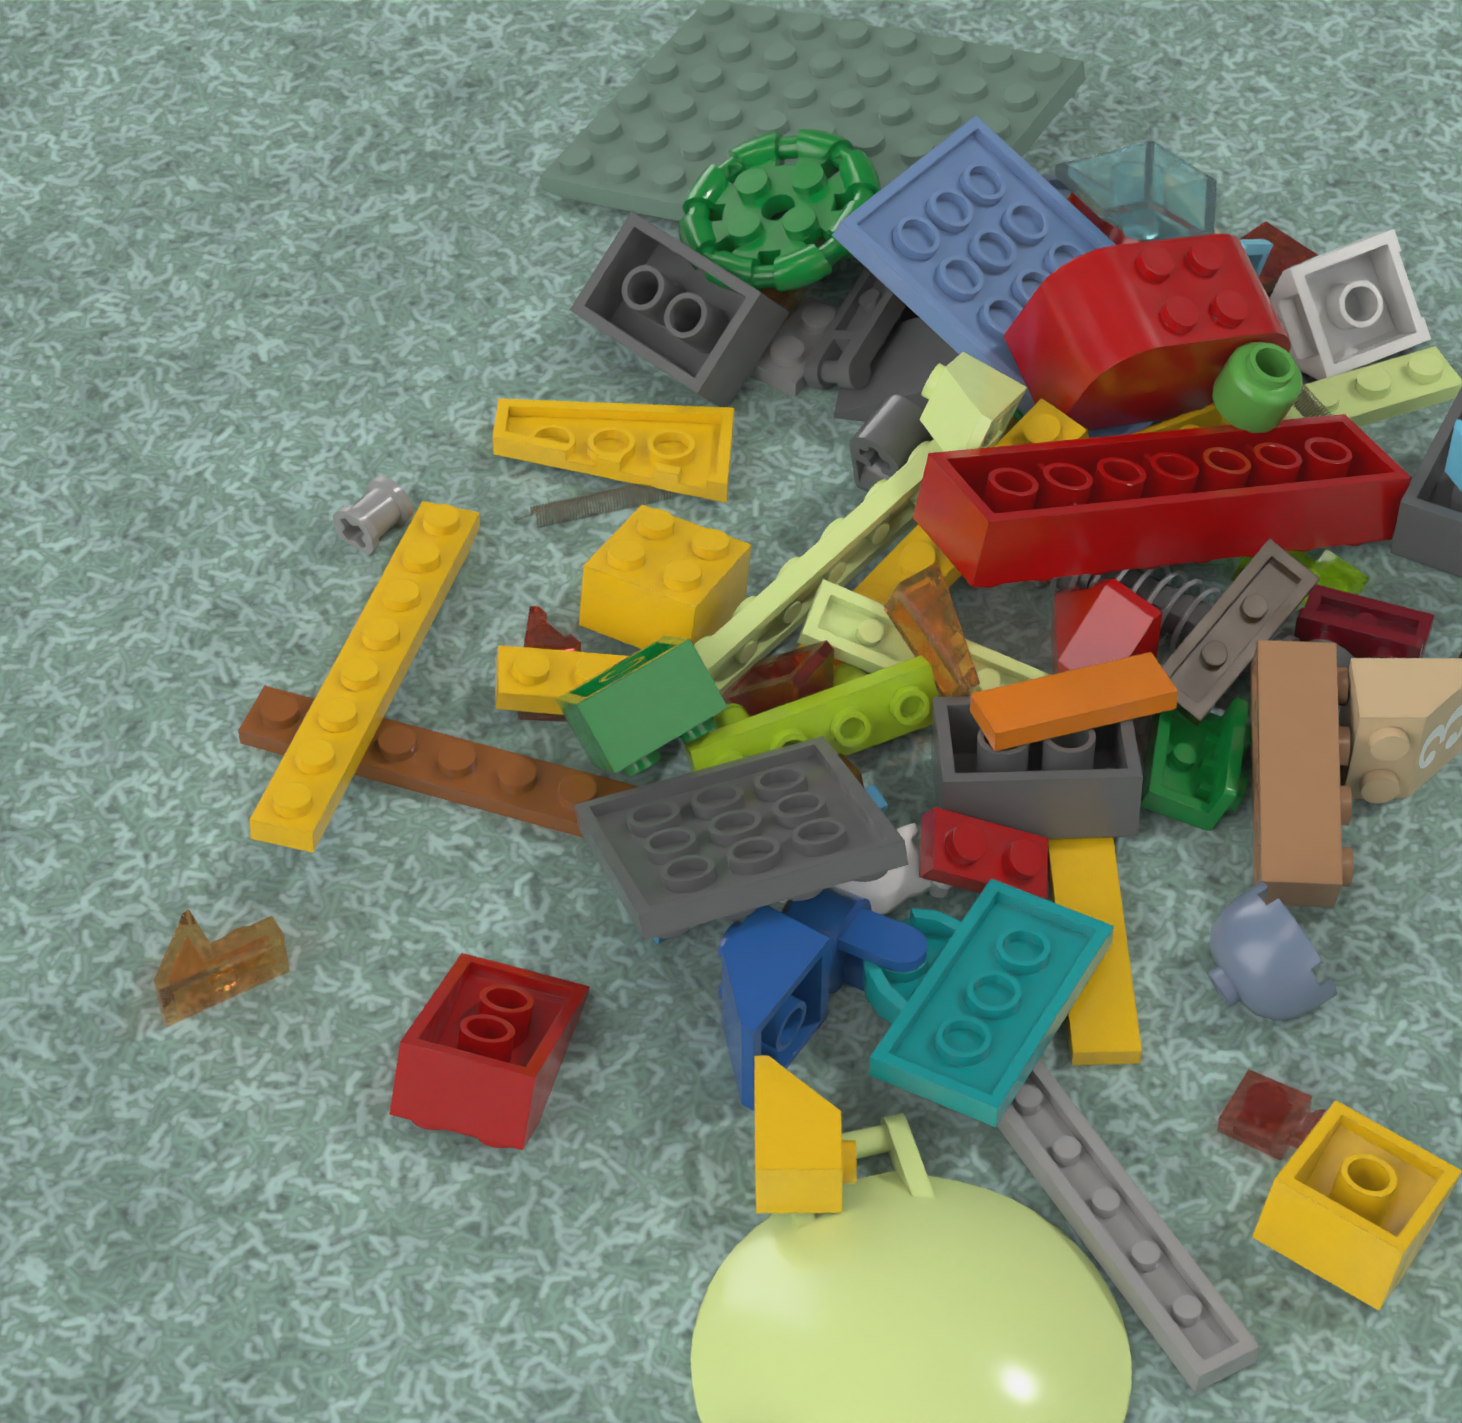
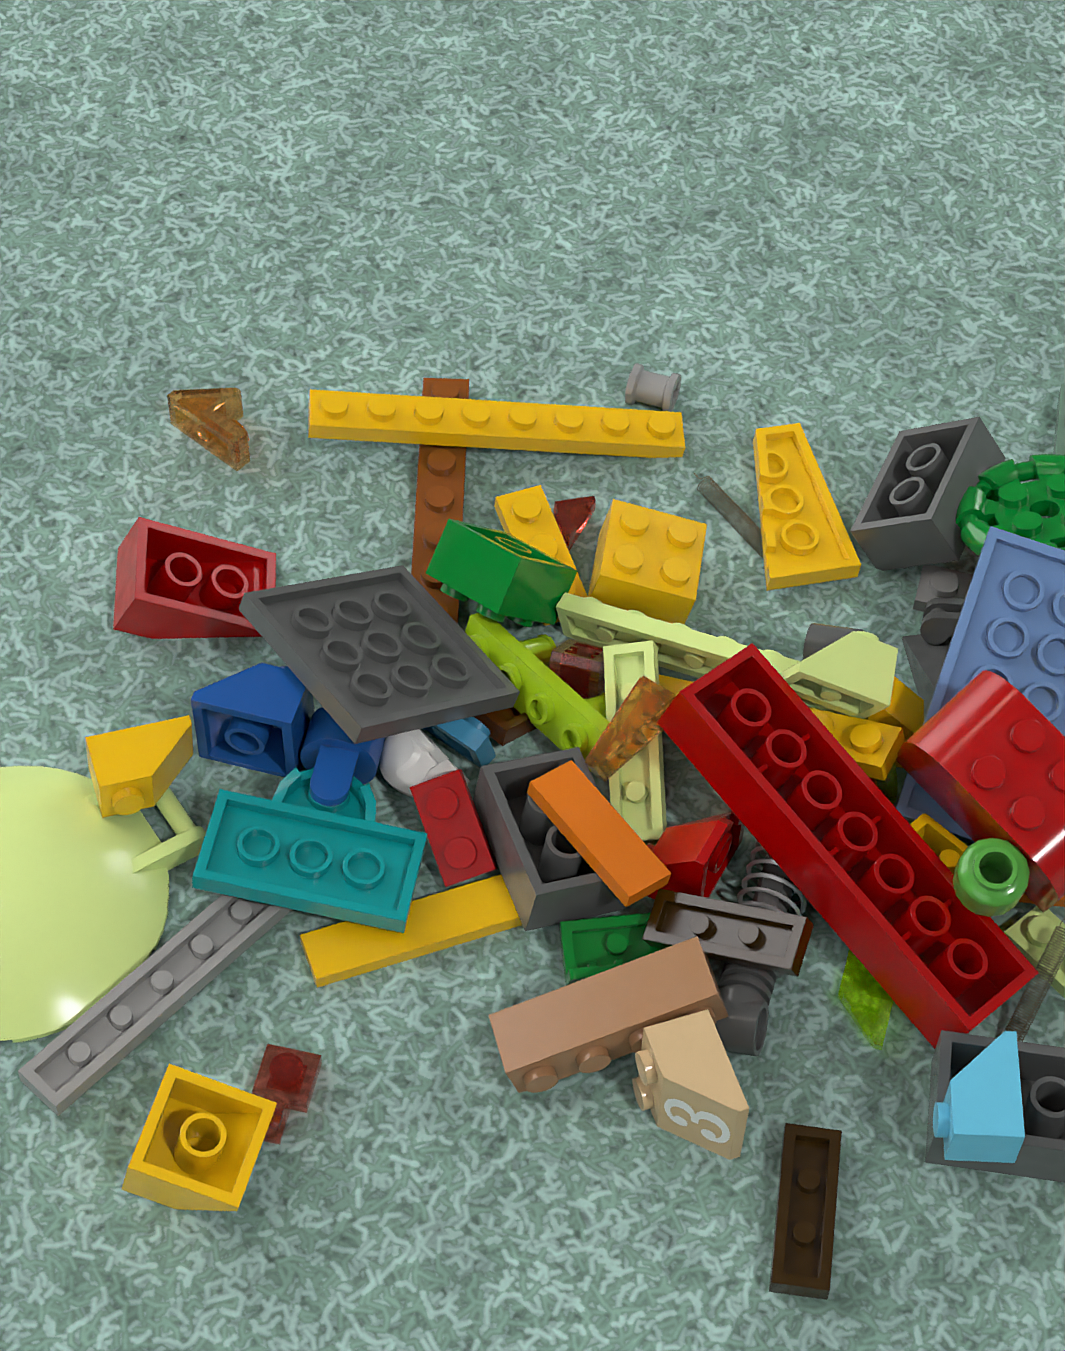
camera: 70 degrees right, 5 degrees up
(1265, 959) = (424, 1029): sand blue cylinder -> none
(1363, 624) = (813, 1051): dark red bracket -> none

